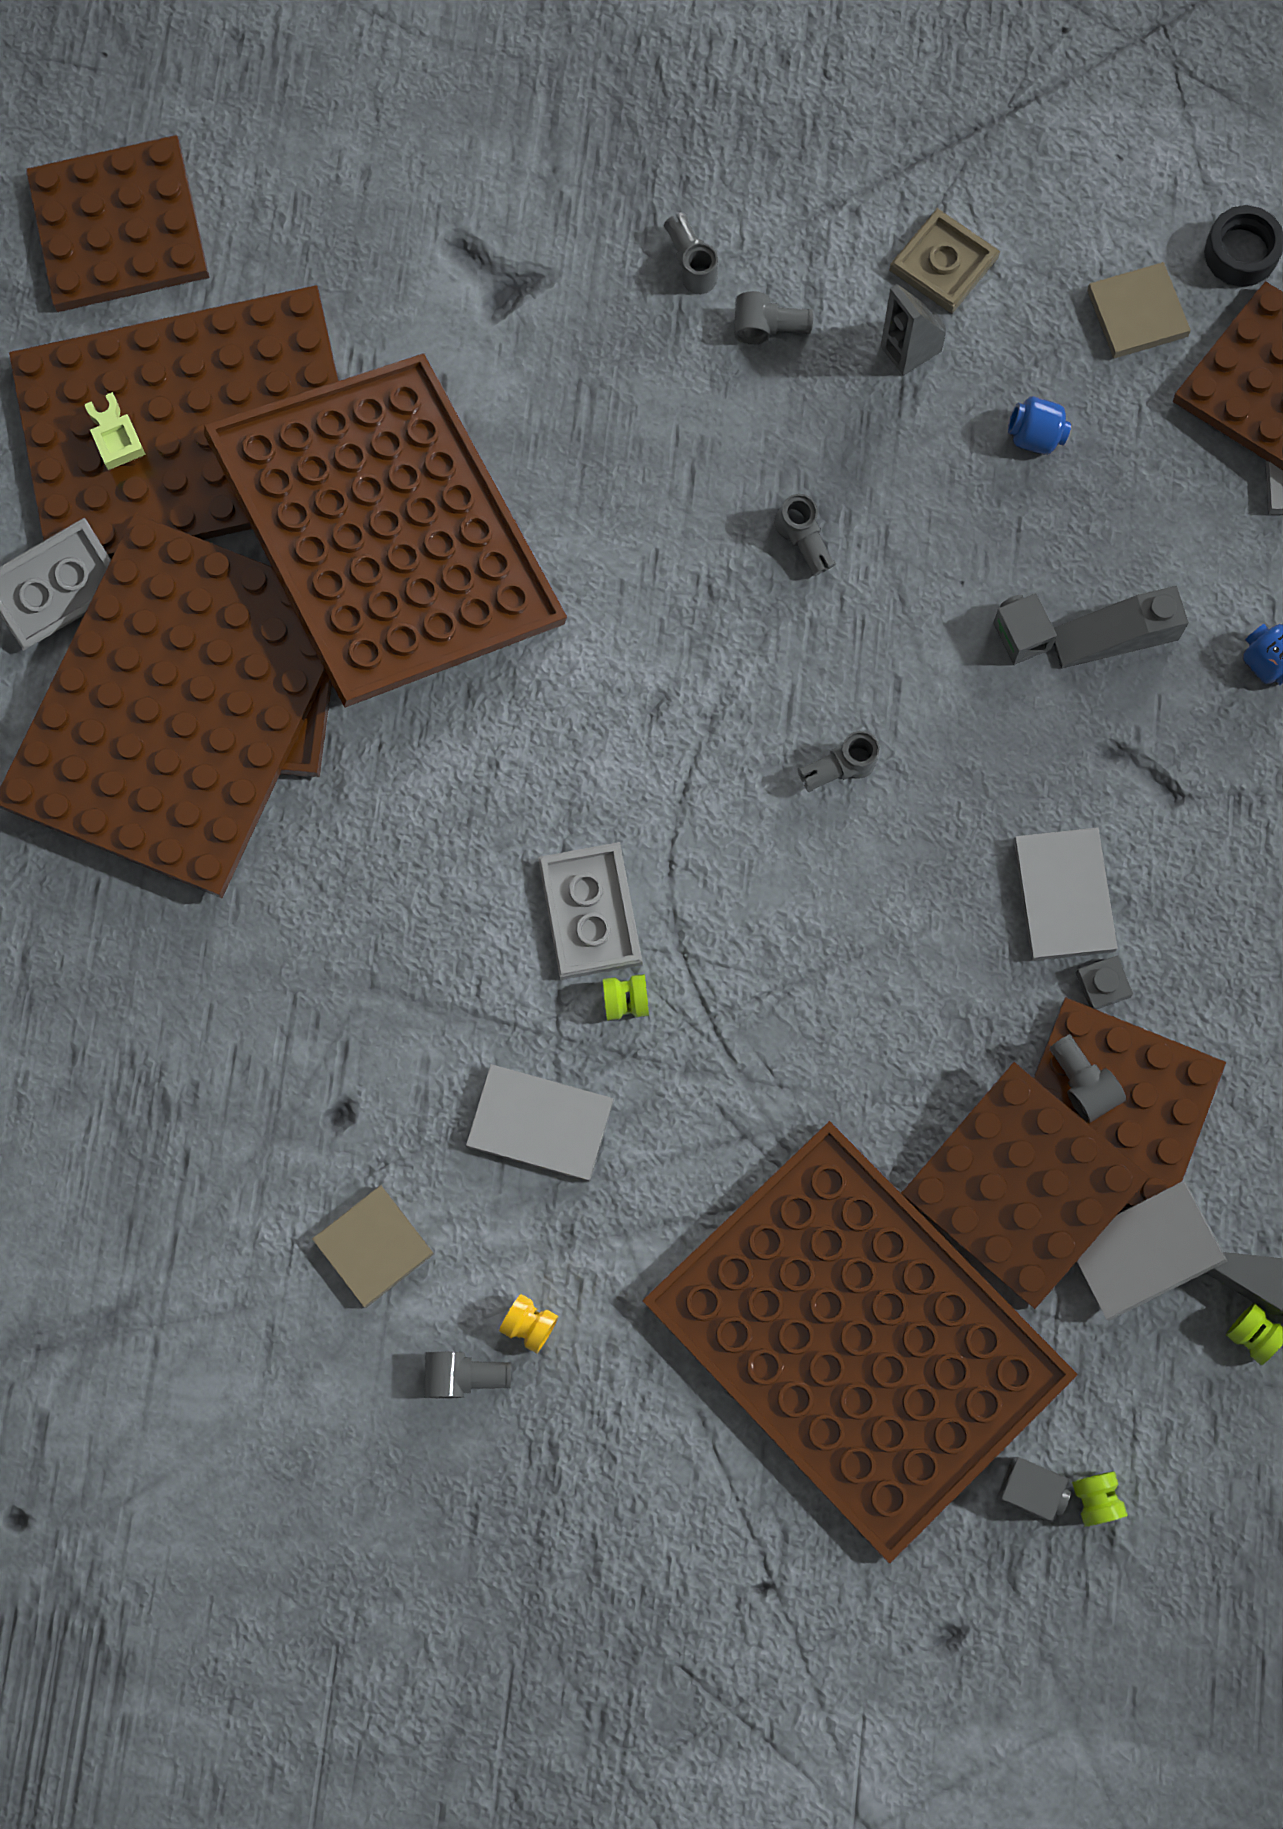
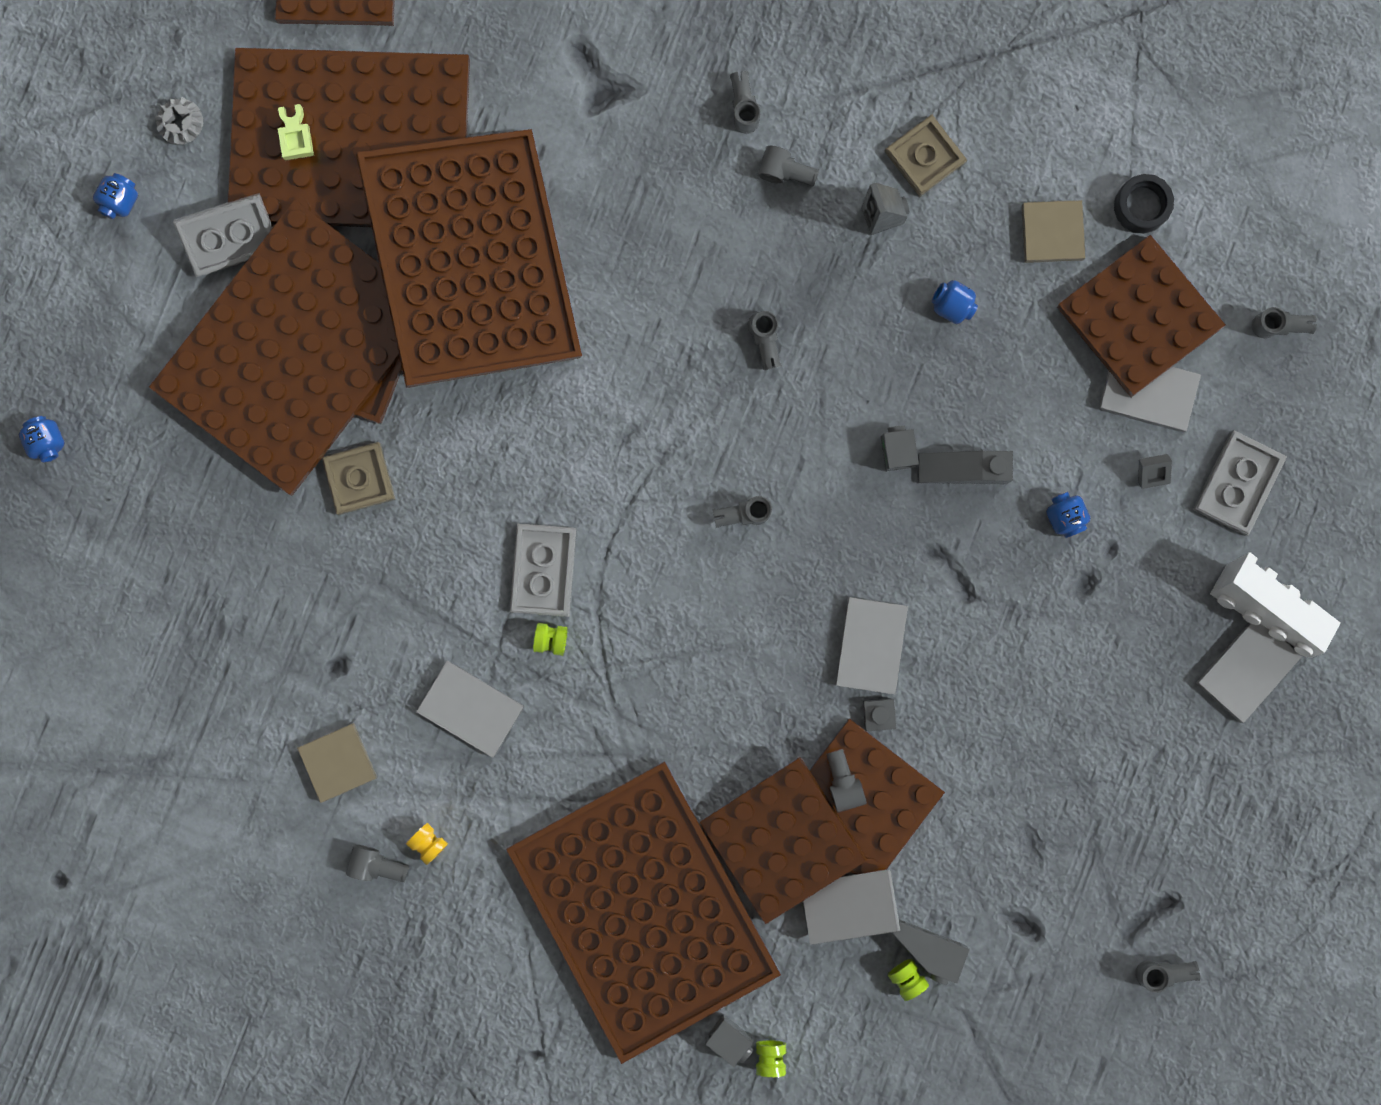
camera: 10 degrees right, 10 degrees up
(306, 855) = (358, 478): none -> dark tan tile

